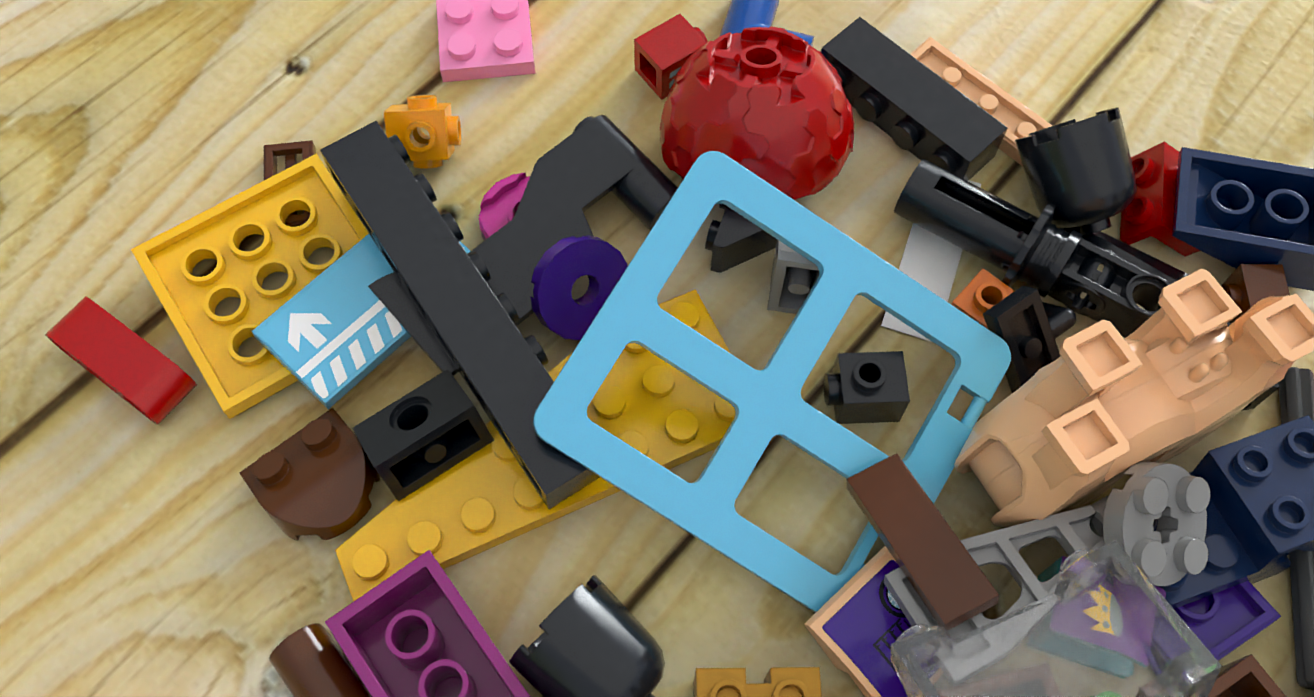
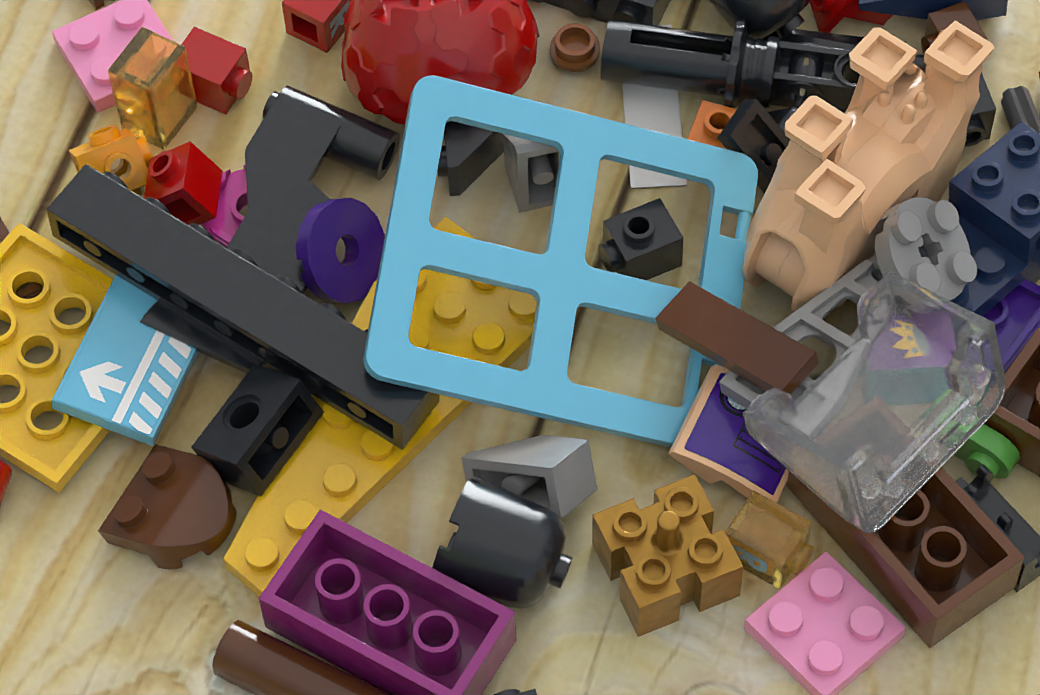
camera: 20 degrees left, 5 degrees down
(470, 174) = (185, 183): none -> red brick
(485, 74) = (153, 87): none -> clear yellow brick
(549, 78) = (217, 70): none -> red brick
(664, 591) = (540, 468): none -> light grey slope
(882, 174) = (575, 48): none -> dark orange plate

